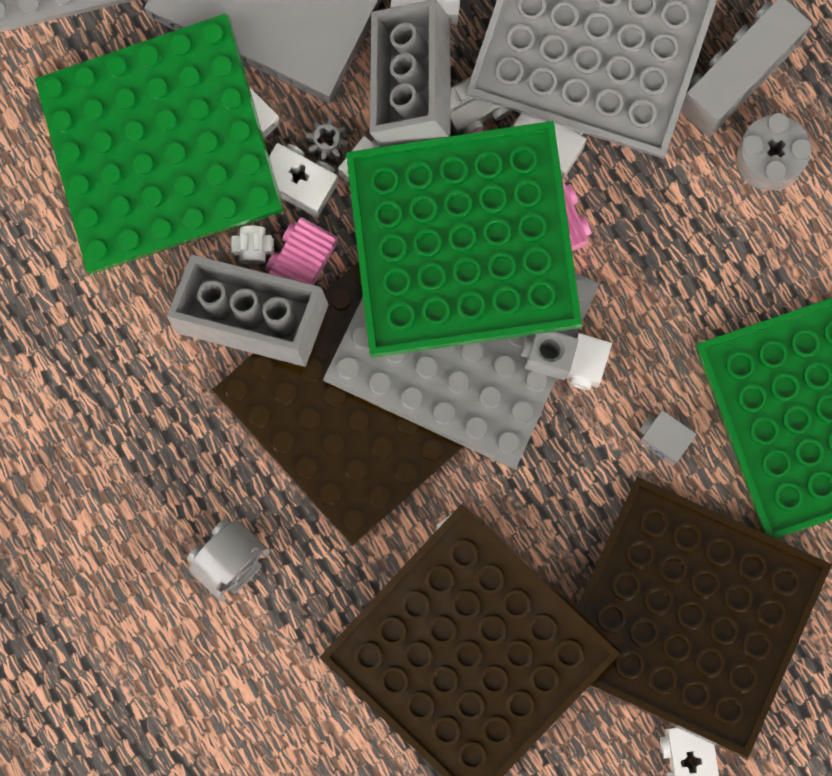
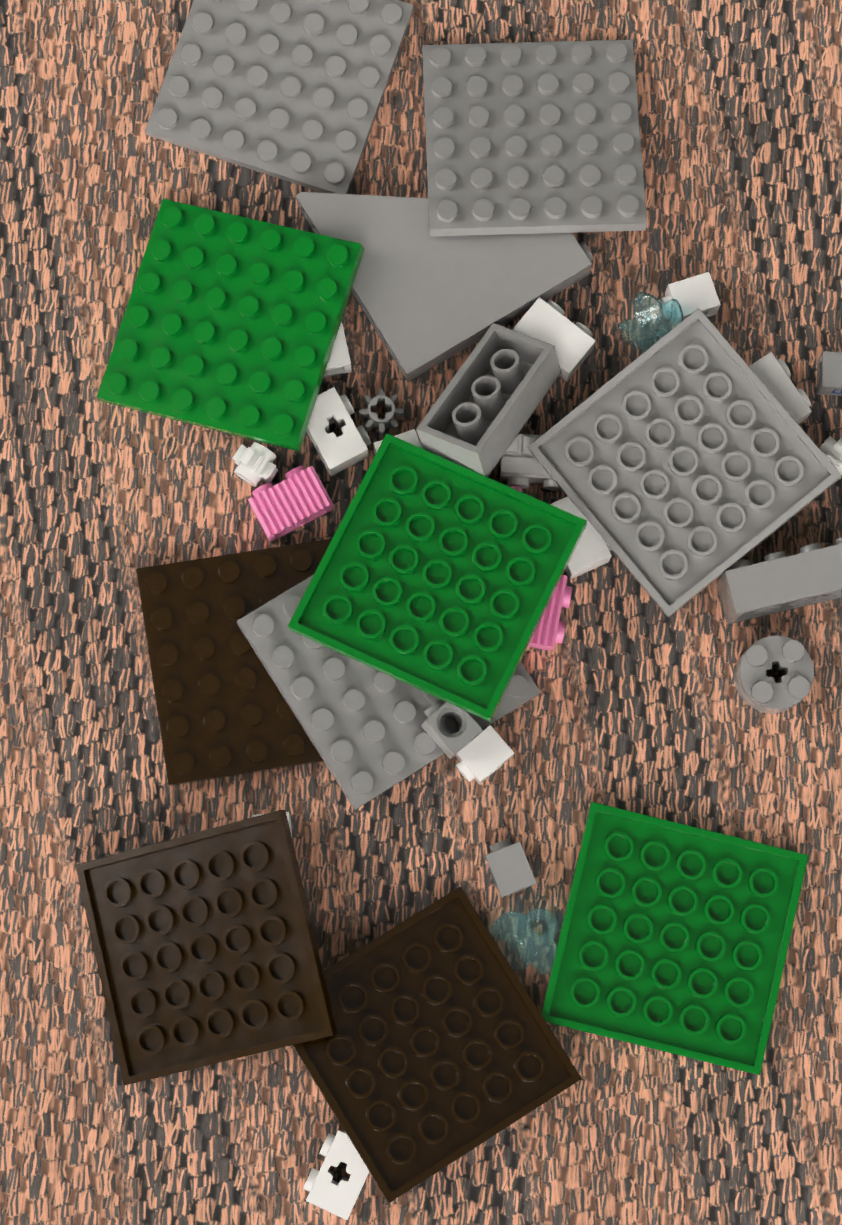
camera: 35 degrees right, 0 degrees up
(227, 558) = (50, 726): light grey brick -> none
(248, 310) = (210, 519): light grey brick -> none
(713, 490) = (522, 944): none -> clear light blue plate

